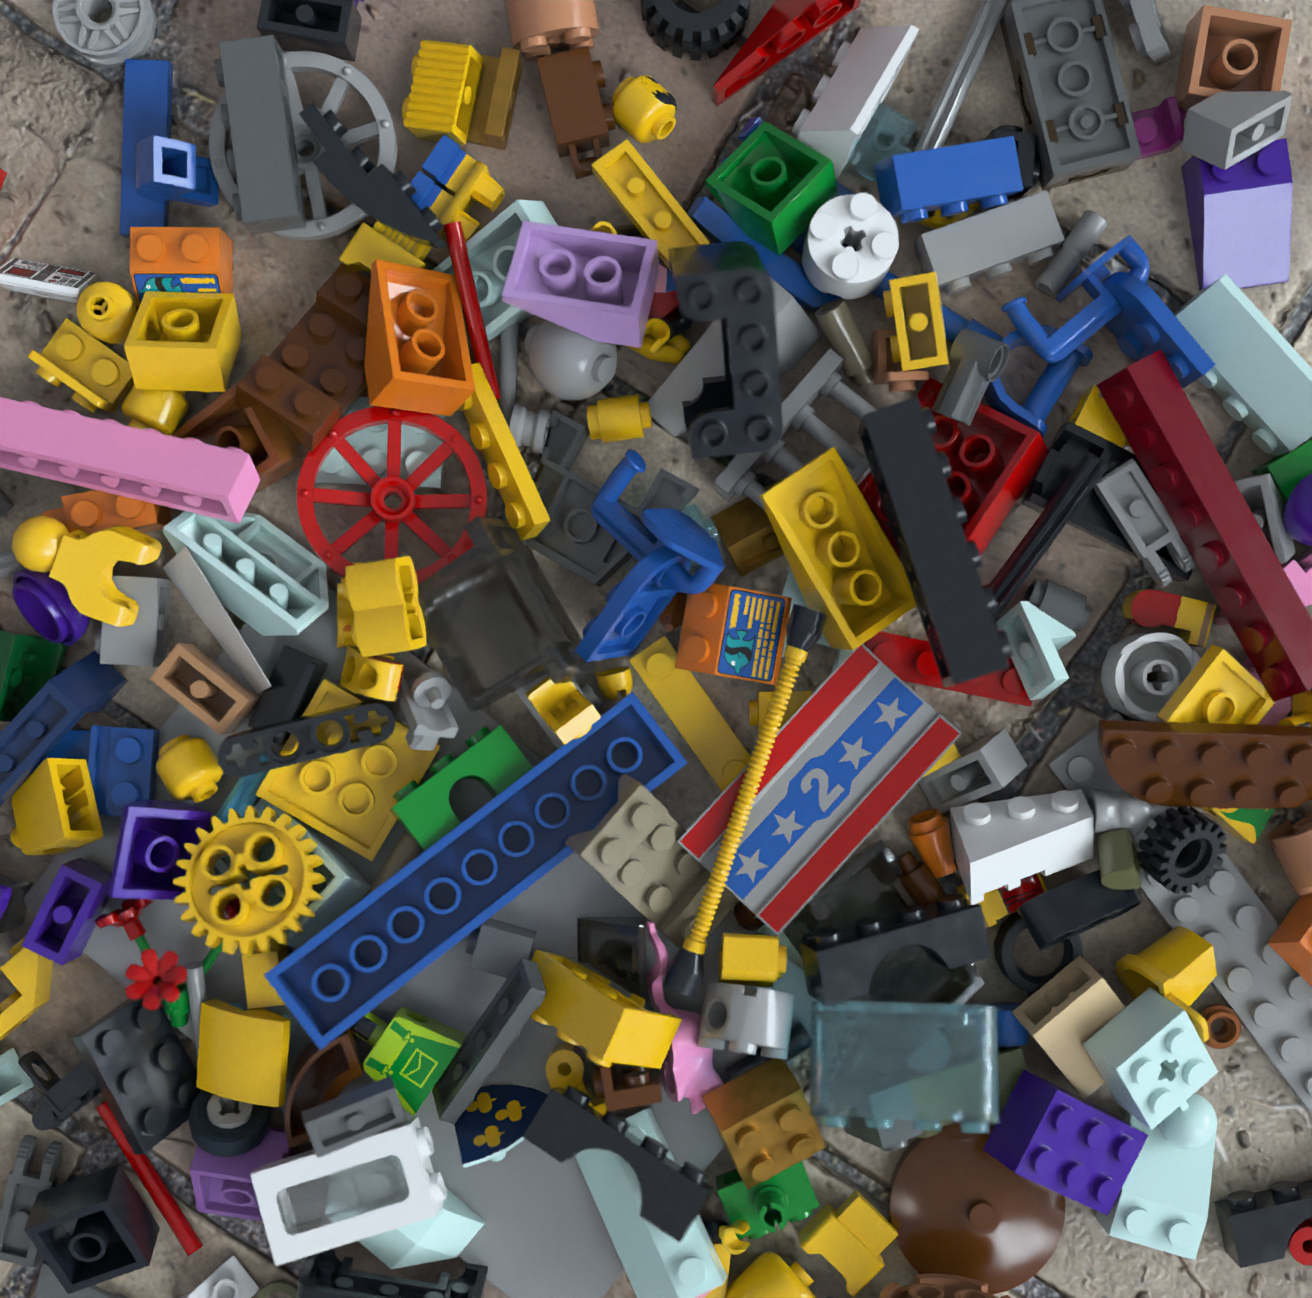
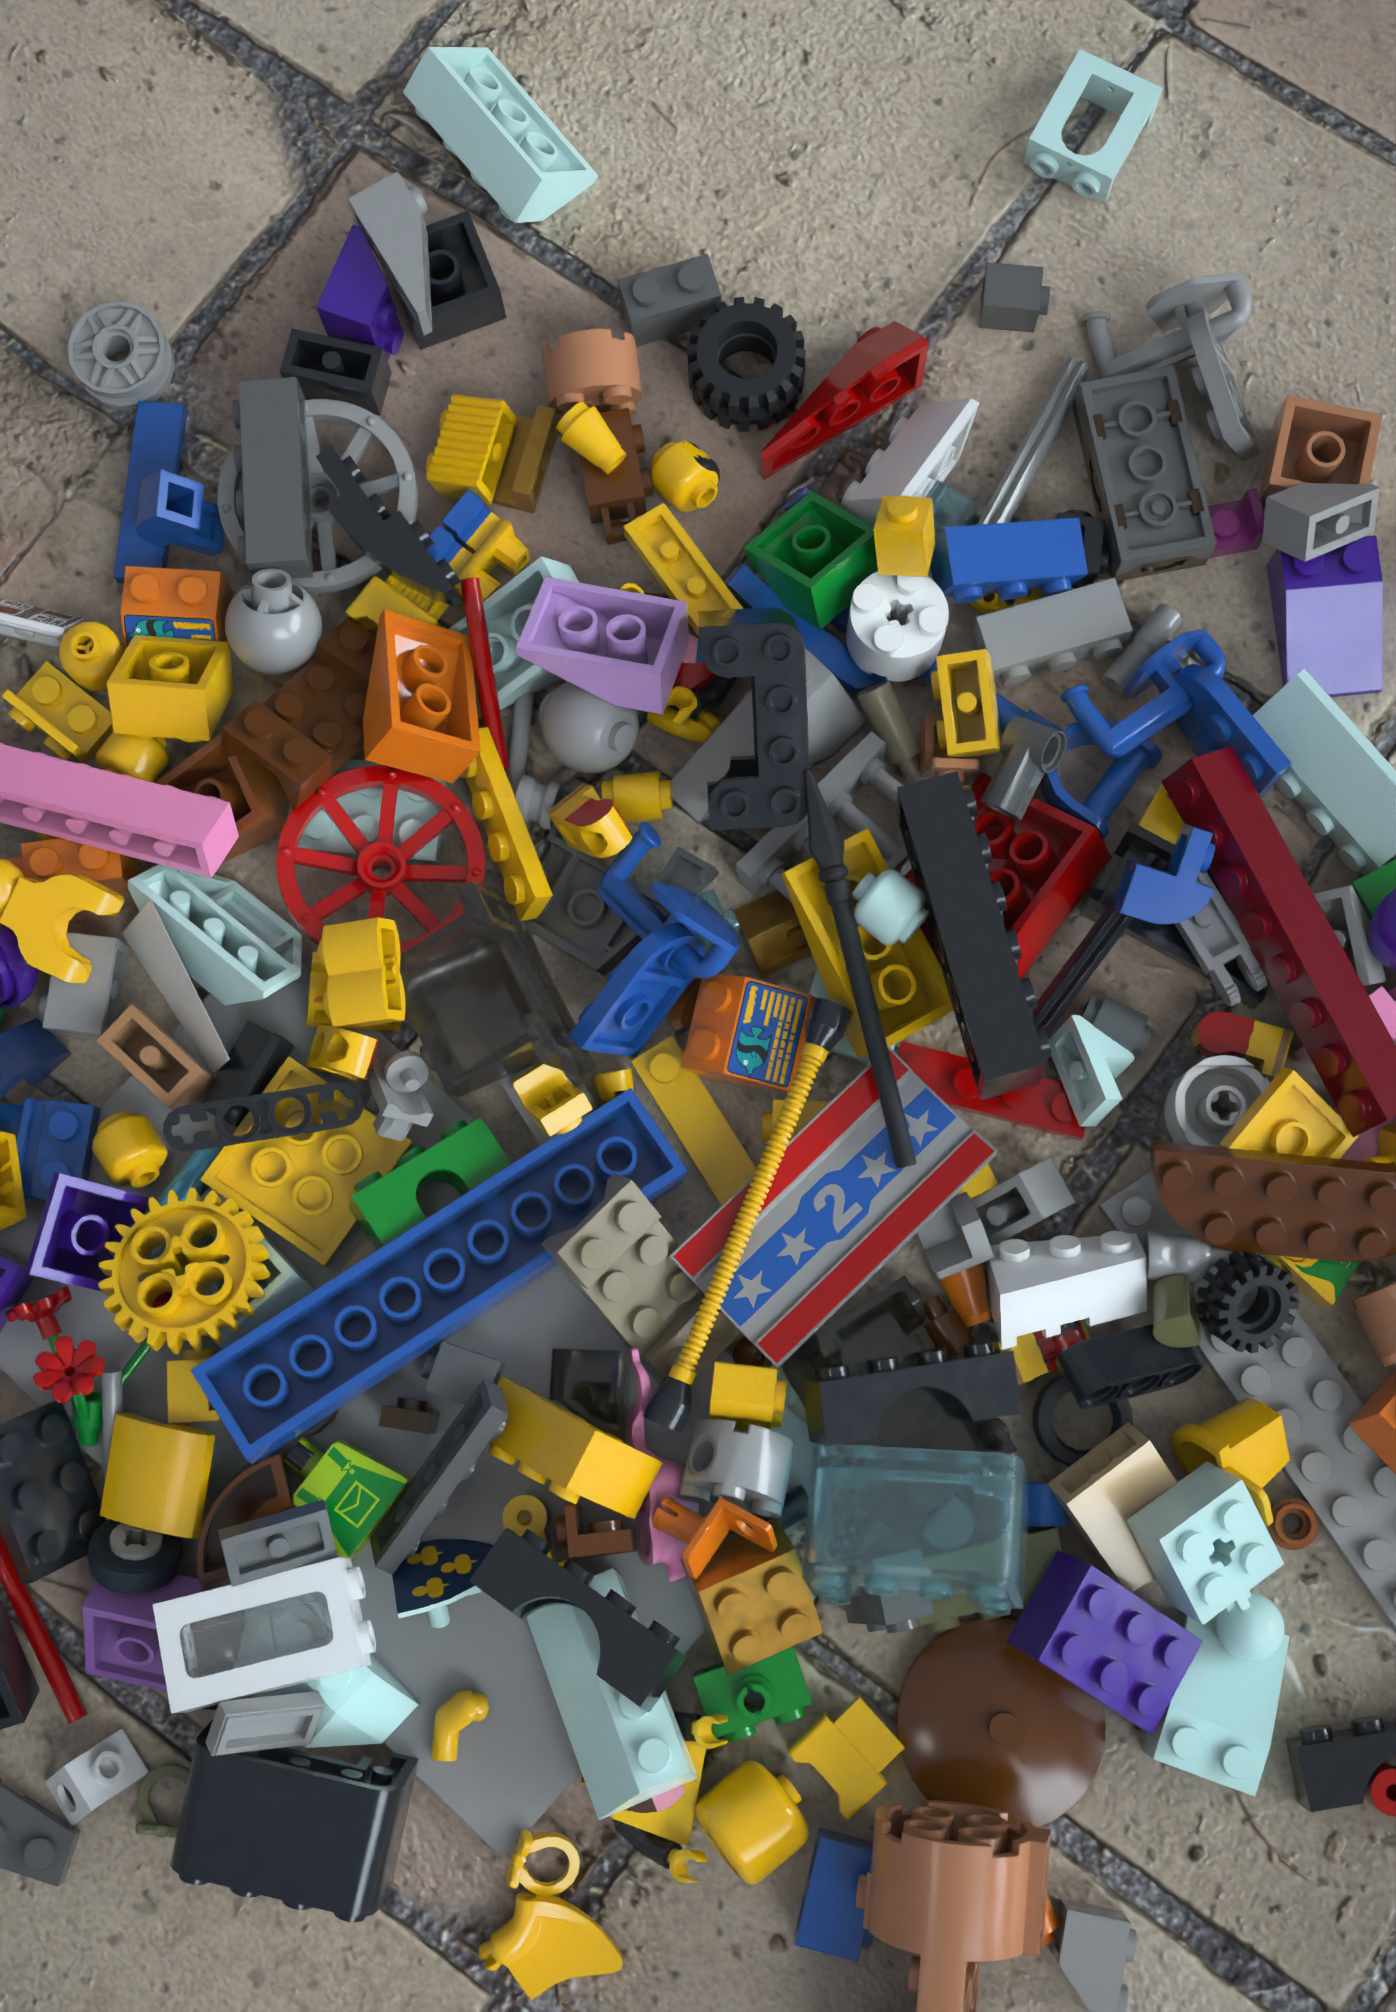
camera: 10 degrees right, 10 degrees down
(273, 275) = (273, 623): none -> light grey brick
(356, 1262) = (264, 1723): none -> light grey tile
(458, 987) = (410, 1416): none -> dark brown plate
(516, 1233) = (452, 1718): none -> yellow arm
(555, 79) = (590, 437): none -> yellow cone
(581, 451) = (590, 823): none -> yellow leg
(722, 1080) = (706, 1533): none -> orange bracket
(800, 474) = (828, 851): none -> black piece
(856, 166) = (904, 536): none -> yellow brick
(858, 521) = (889, 907): none -> light aqua head
(926, 809) = (955, 1238): none -> light grey panel
(1109, 493) = (1170, 894): none -> blue brick

